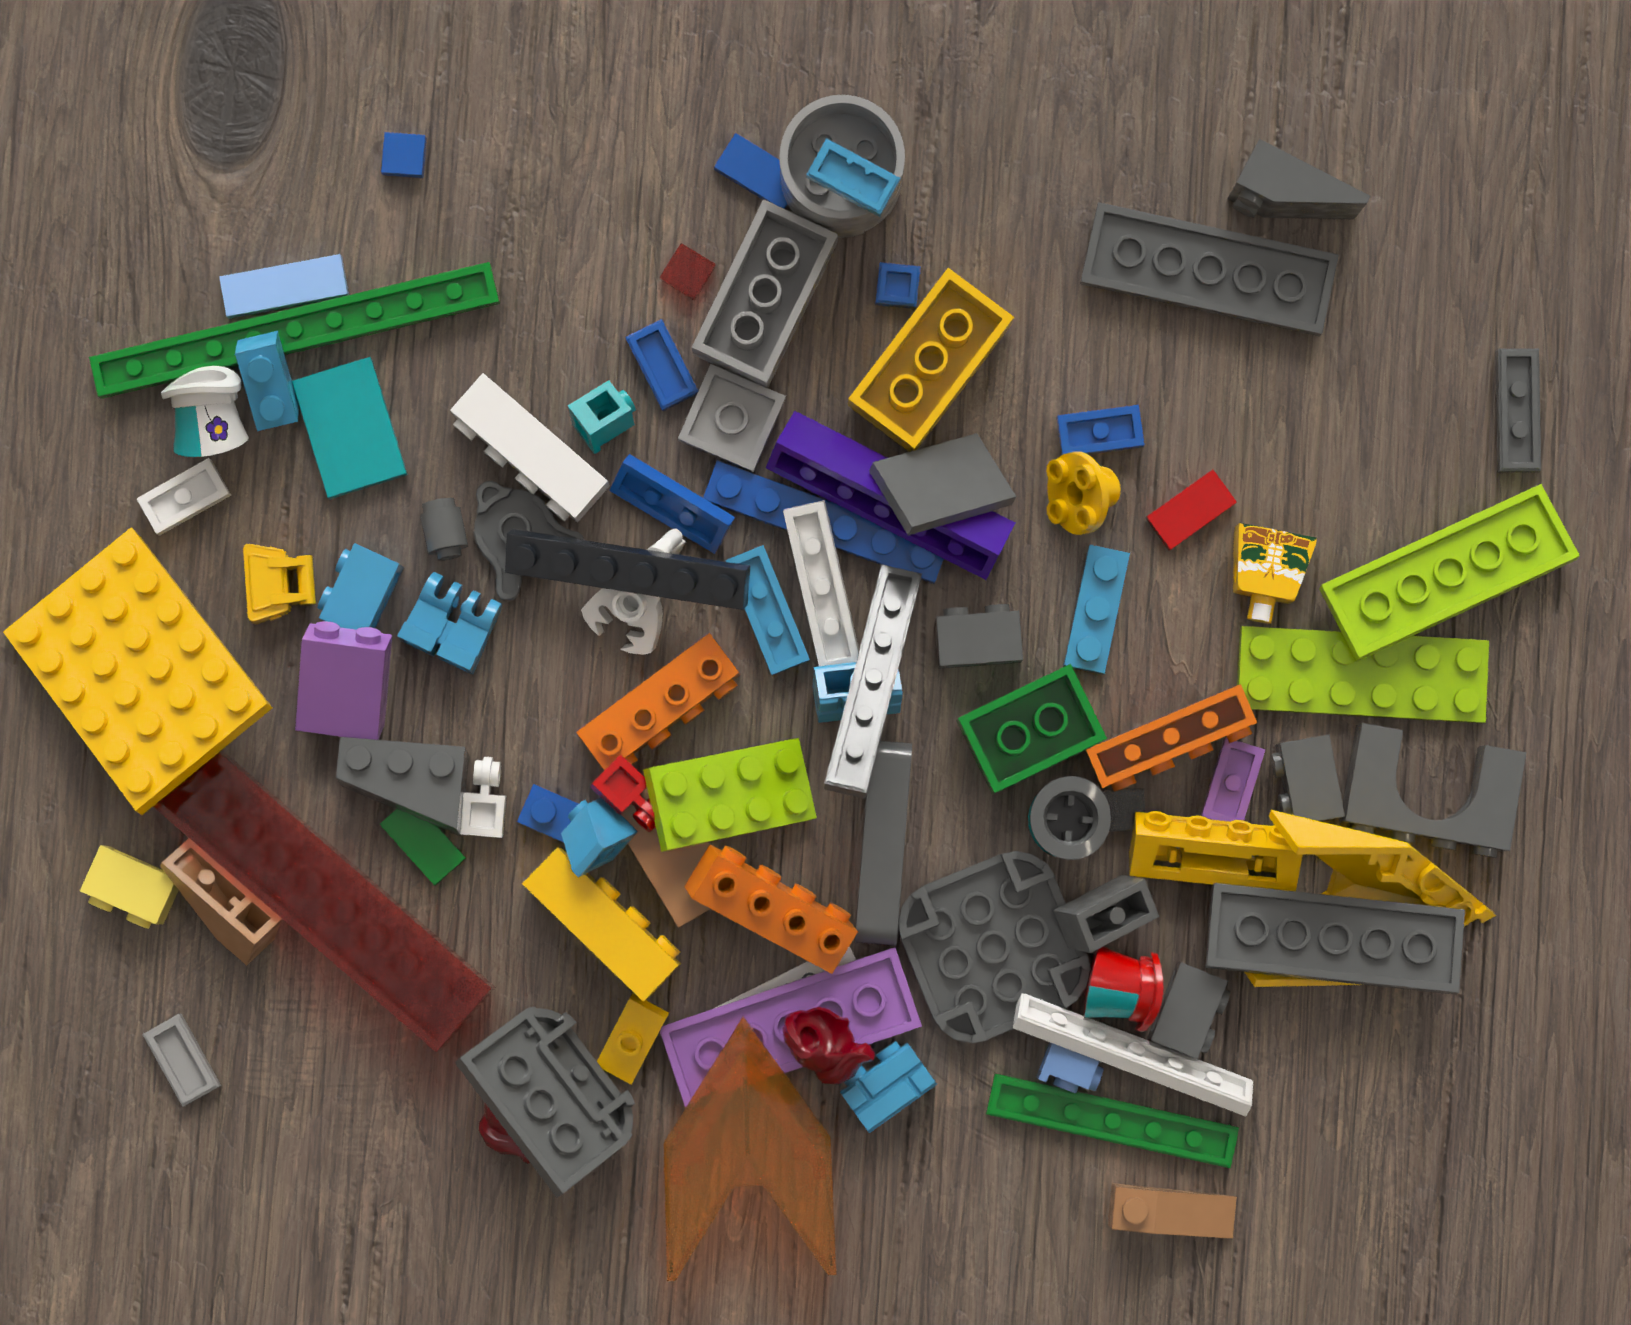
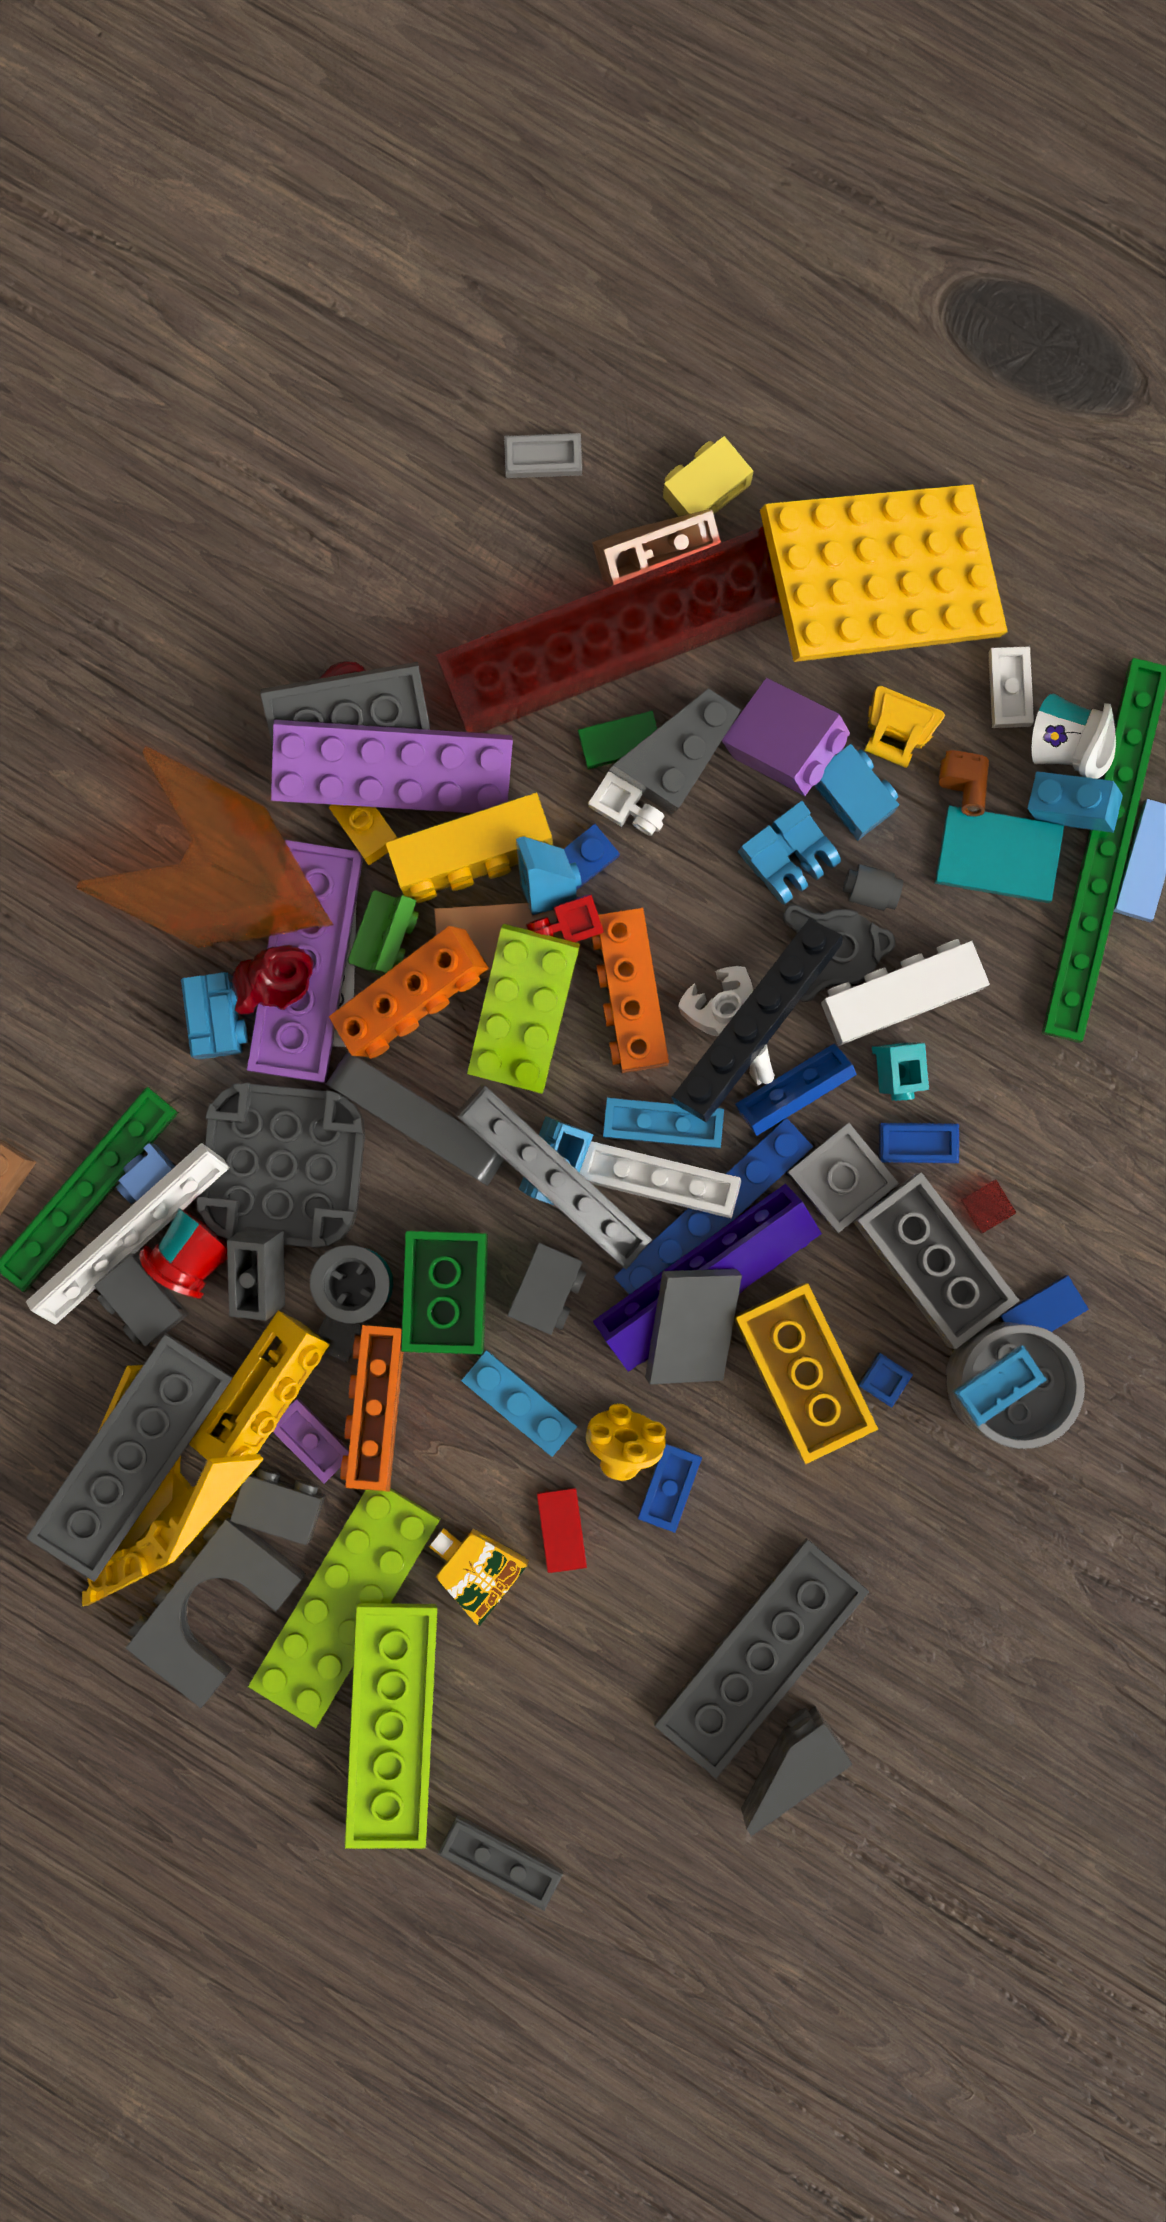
camera: 120 degrees right, 0 degrees up
(289, 496) = (967, 774): none -> dark orange piece
(566, 1039) = (389, 767): none -> medium lavender plate
(725, 965) = (382, 932): none -> bright green bracket

